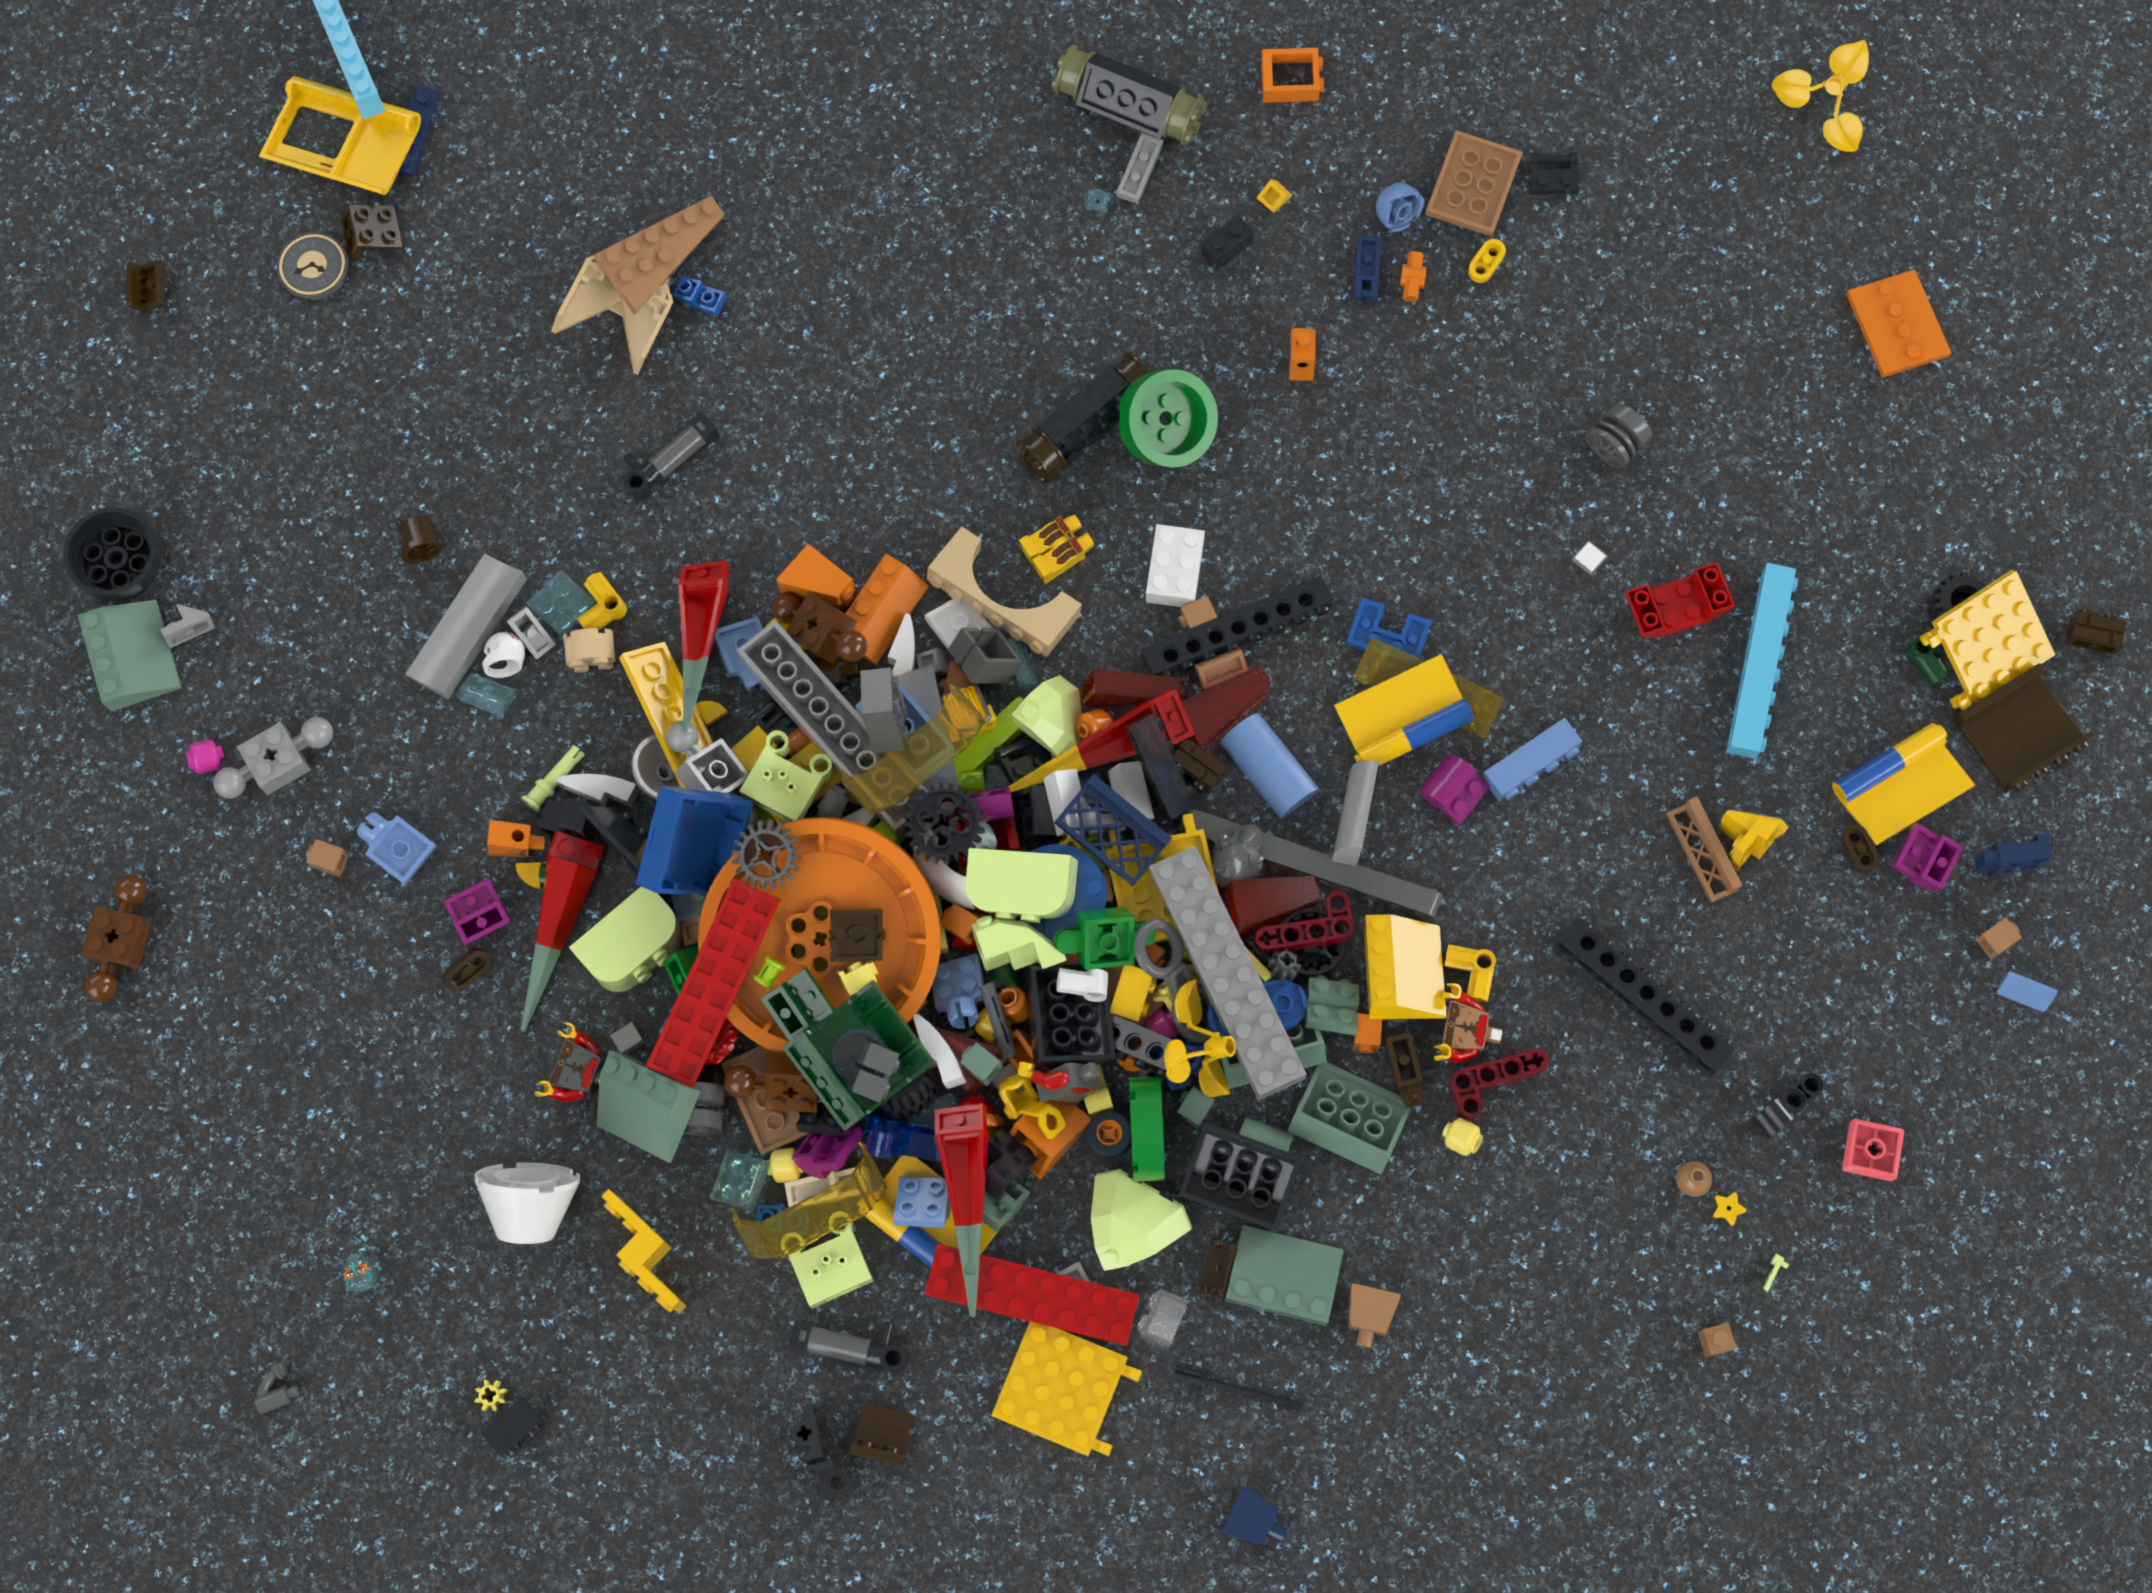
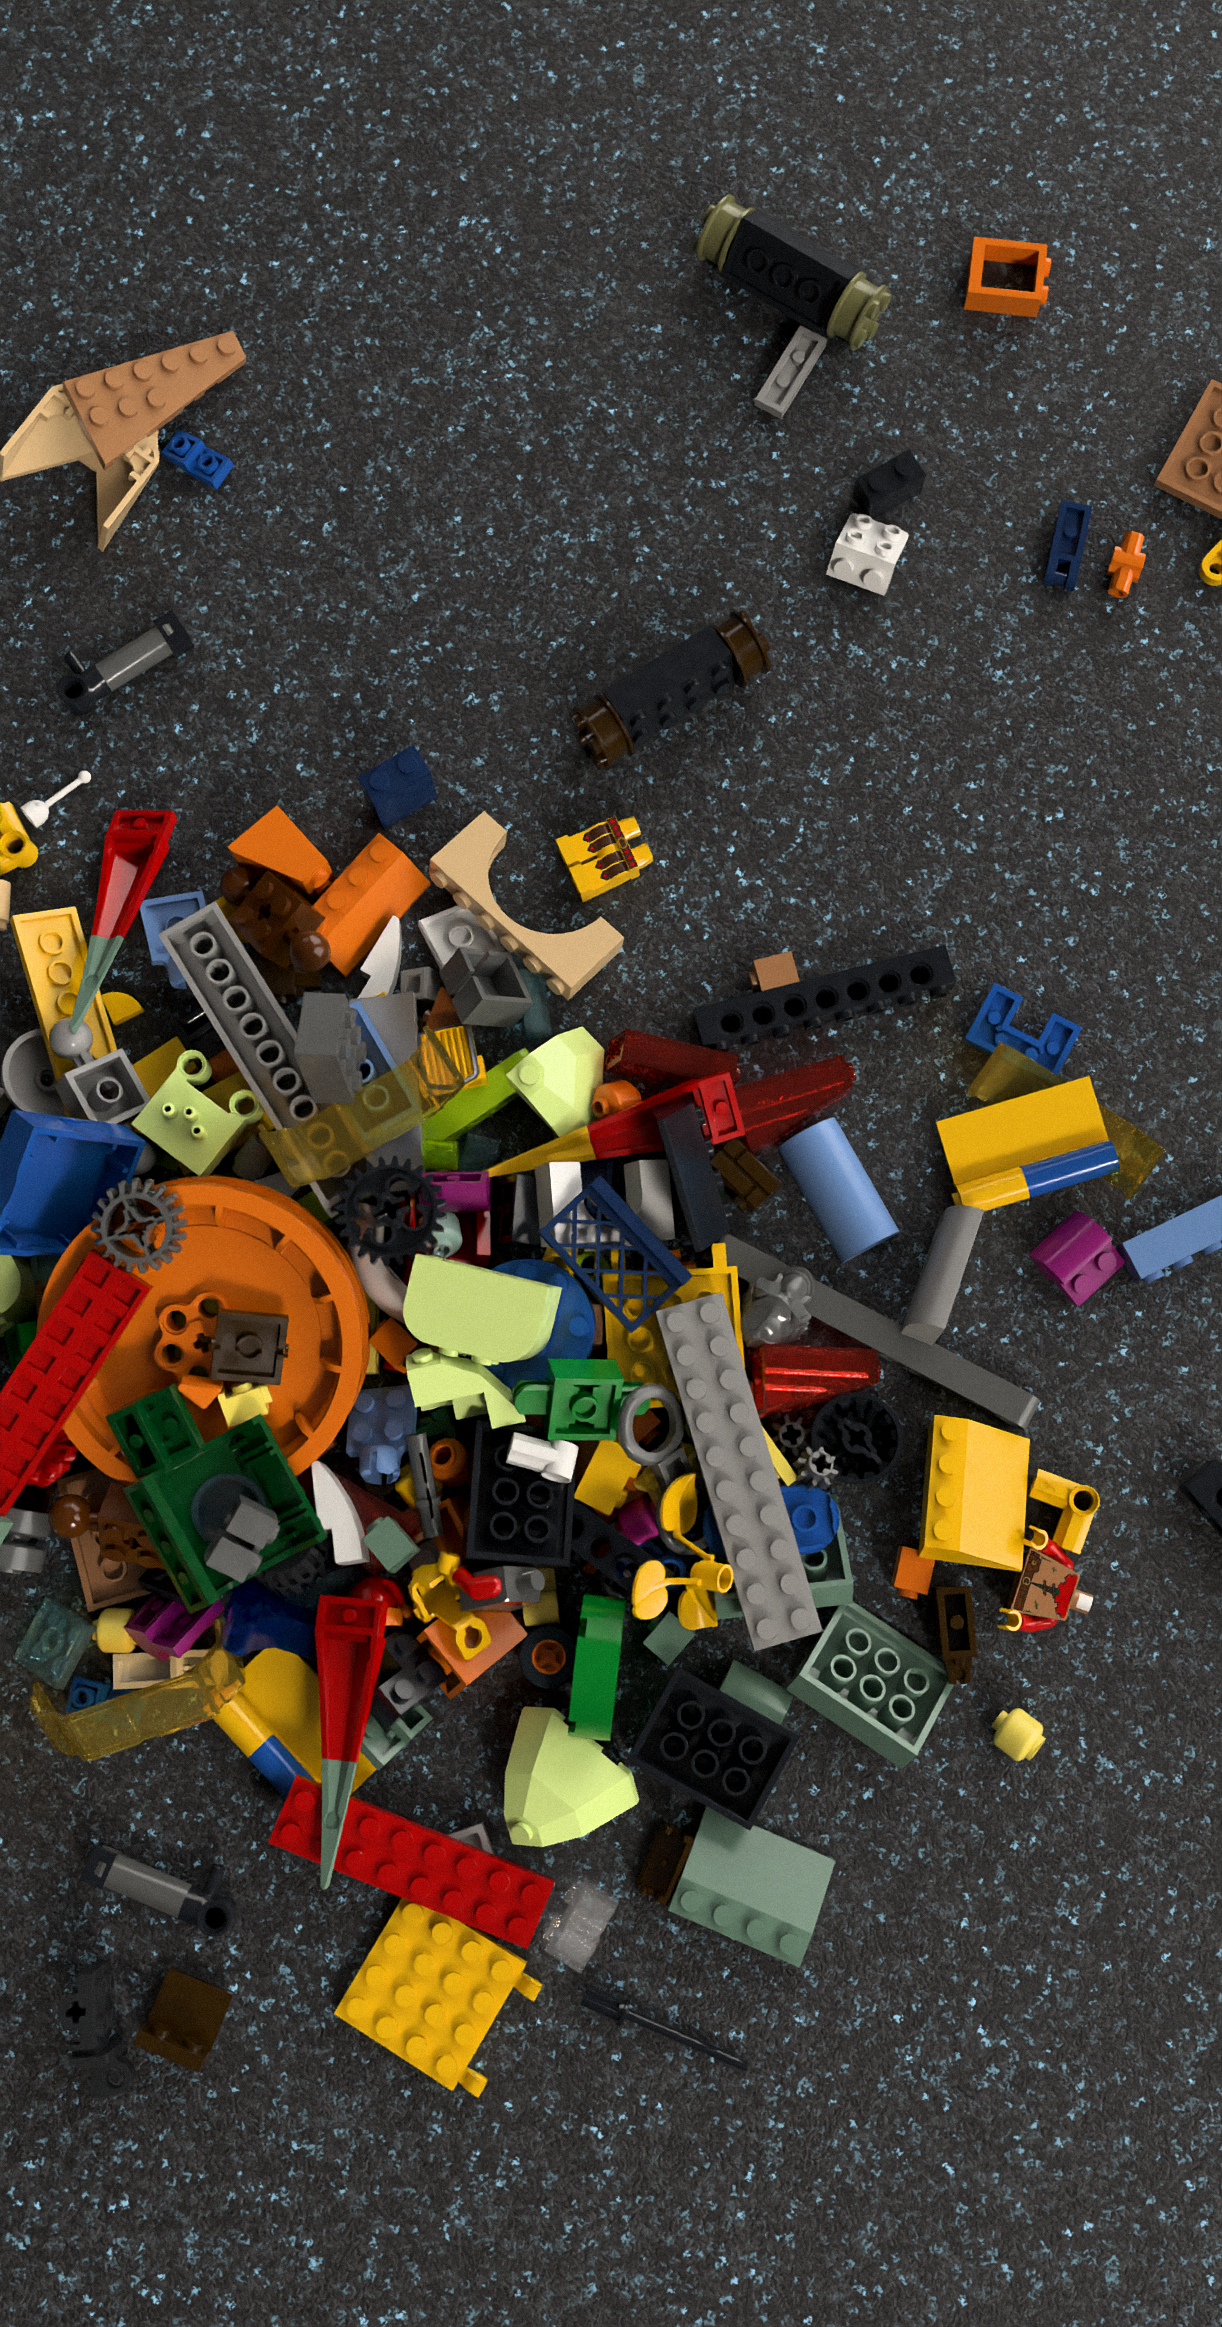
camera: 10 degrees right, 5 degrees up
(621, 576) = (38, 811): none -> white hinge
(769, 972) = (125, 1380): lime bush -> none
(825, 971) = (199, 1389): none -> orange slope
(831, 1268) = (156, 1780): yellowish green piece -> none
(895, 518) = (398, 787): none -> dark blue brick
(921, 1202) = (285, 1713): medium blue plate -> none
(1022, 766) = (514, 1142): black plate -> none
(1097, 194) = (733, 400): clear light blue plate -> none
(1174, 565) = (754, 904): white brick -> none
(1190, 414) = (805, 711): brick -> none
(1218, 295) = (867, 553): none -> white bracket
(1221, 668) = (794, 1049): medium nougat plate -> none
(1253, 1519) = (657, 2216): dark blue torso -> none
(1274, 195) = (959, 432): yellow slope -> none
(1302, 350) = (967, 641): orange torso -> none
(1302, 929) = (848, 1424): dark red beam -> none
(1332, 1005) = (871, 1529): sand green plate -> none
(1370, 1312) = (859, 1956): medium nougat torso -> none
(1398, 206) = (1121, 468): medium blue cylinder -> none
(1500, 1078) = (1078, 1661): dark red beam -> none

